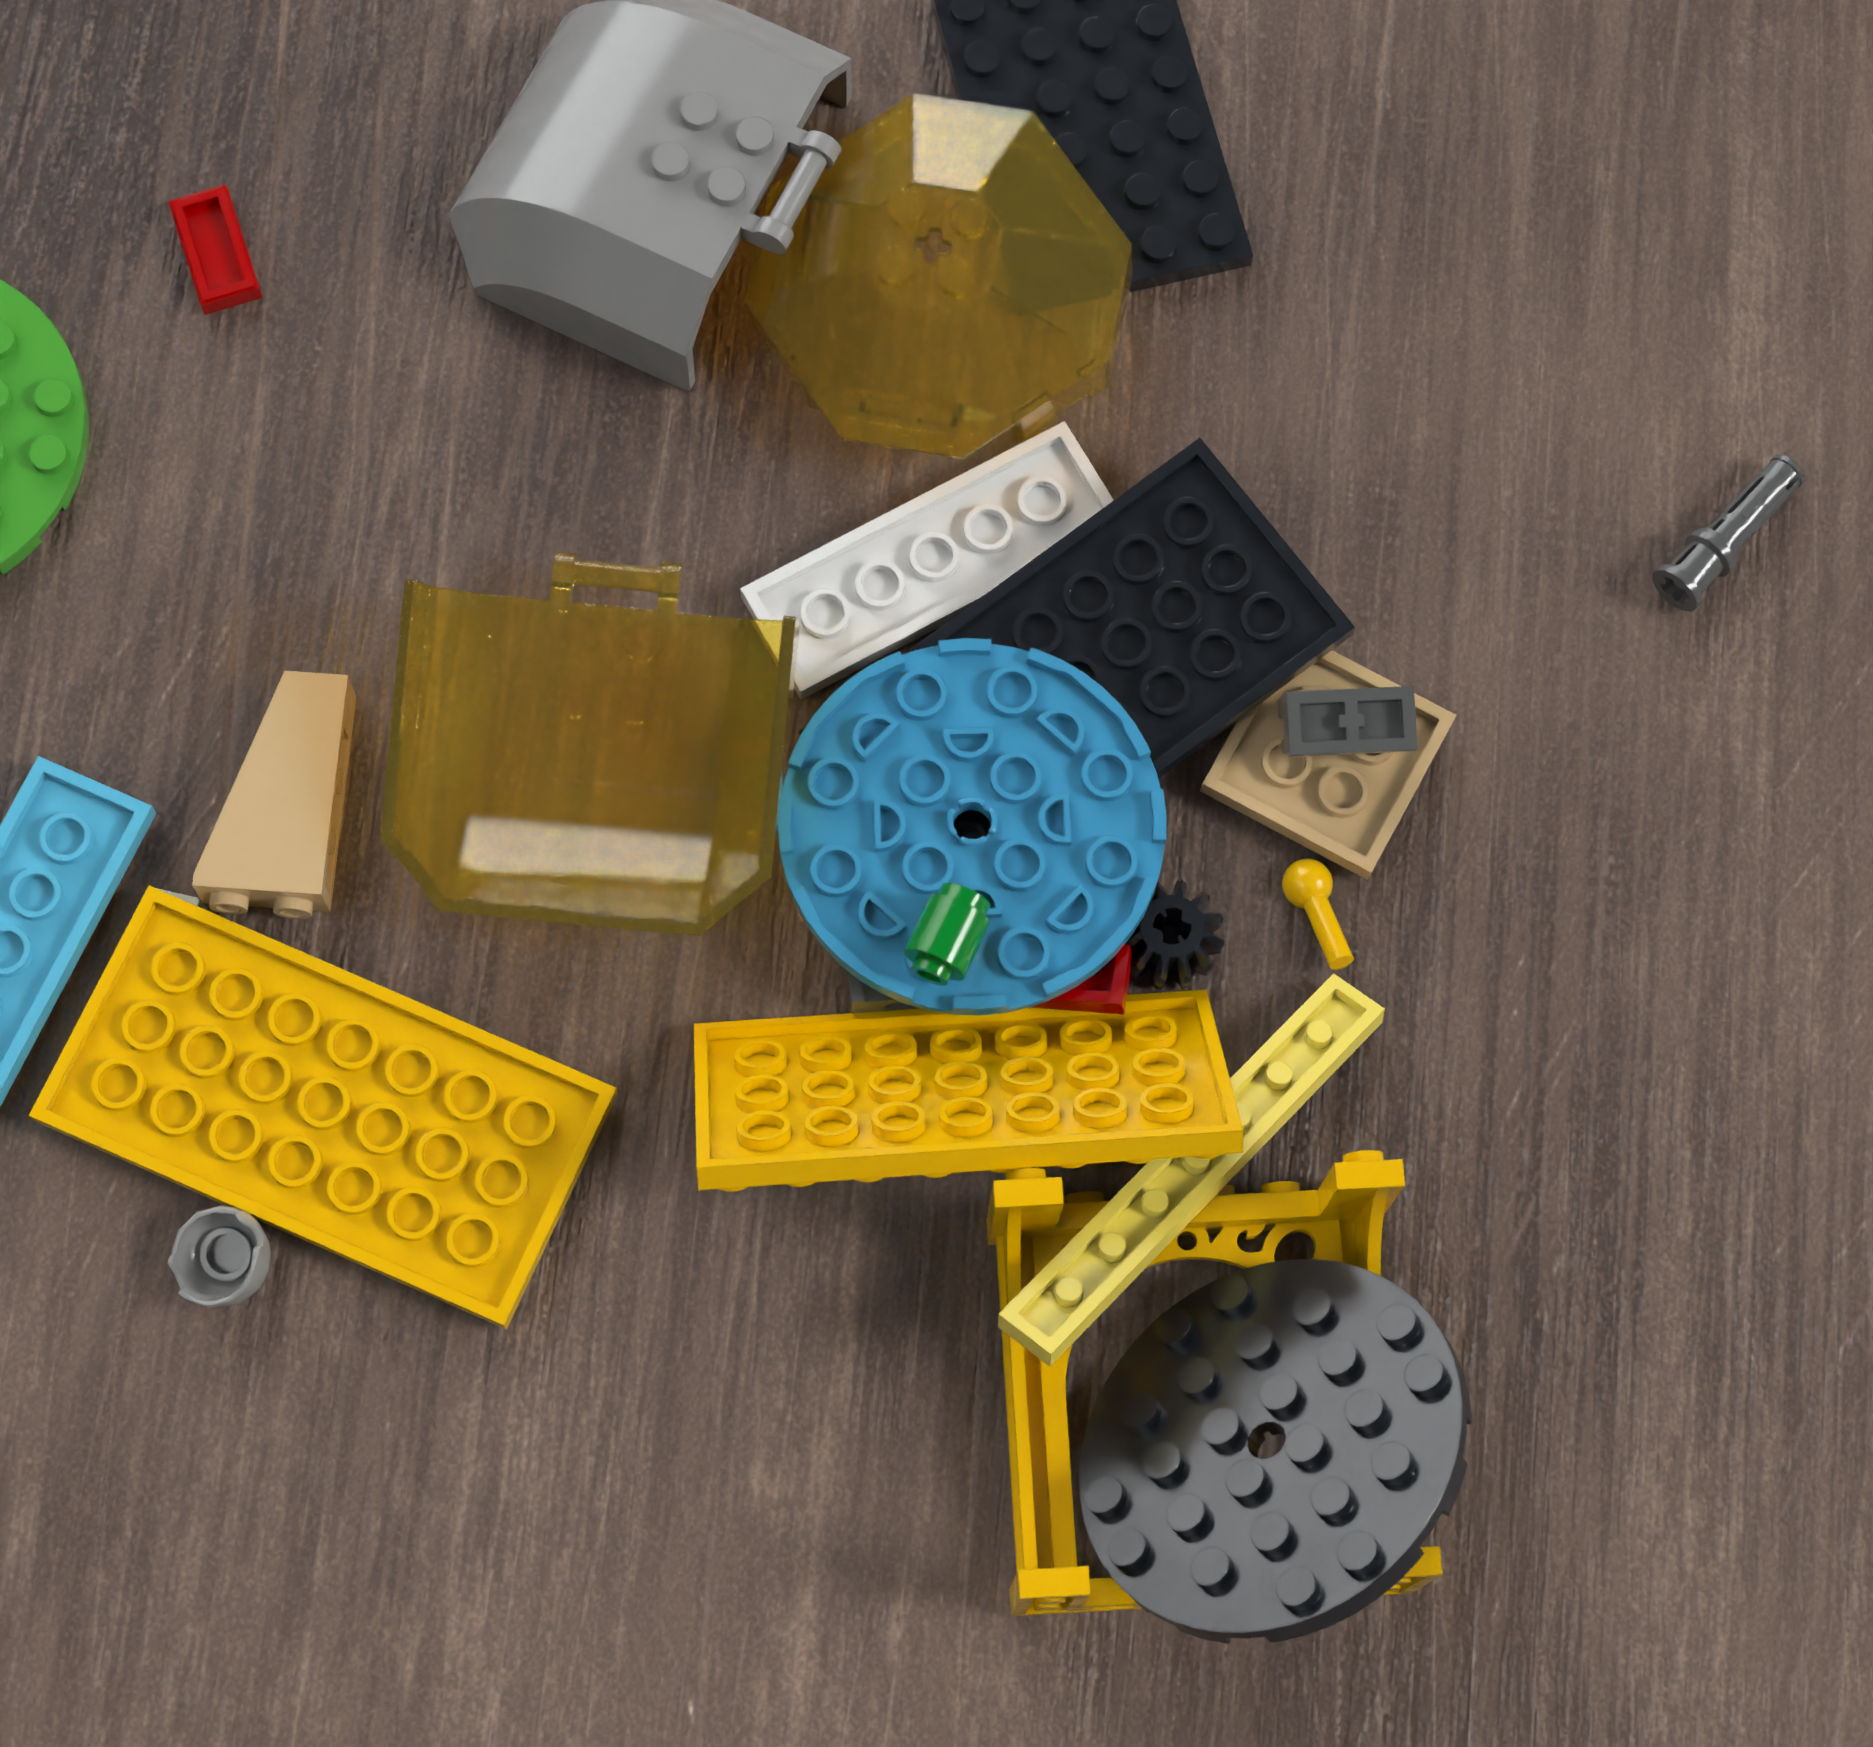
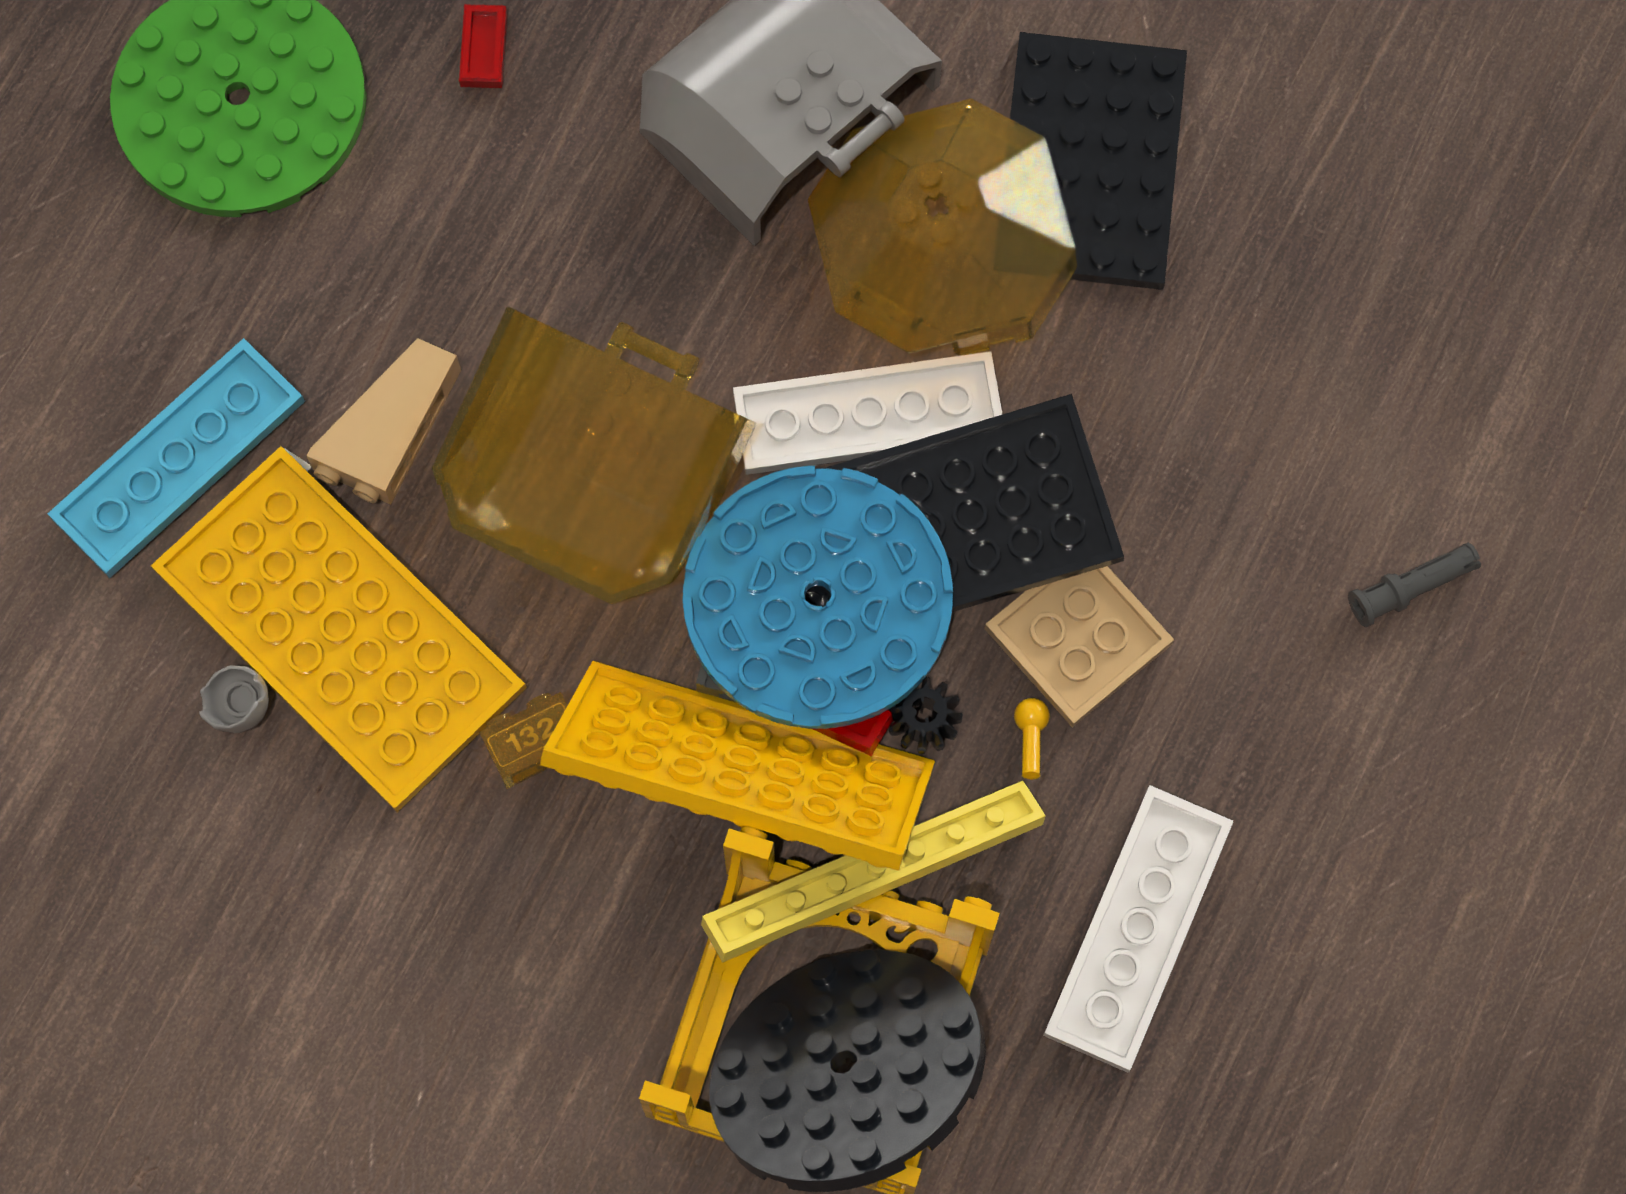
camera: 25 degrees right, 0 degrees up
(650, 1164) = (519, 740): none -> clear yellow brick
(948, 934) = (769, 661): green brick -> none
(1348, 721) = (1094, 617): dark grey hinge -> none
(1563, 1115) = (1138, 929): none -> white plate

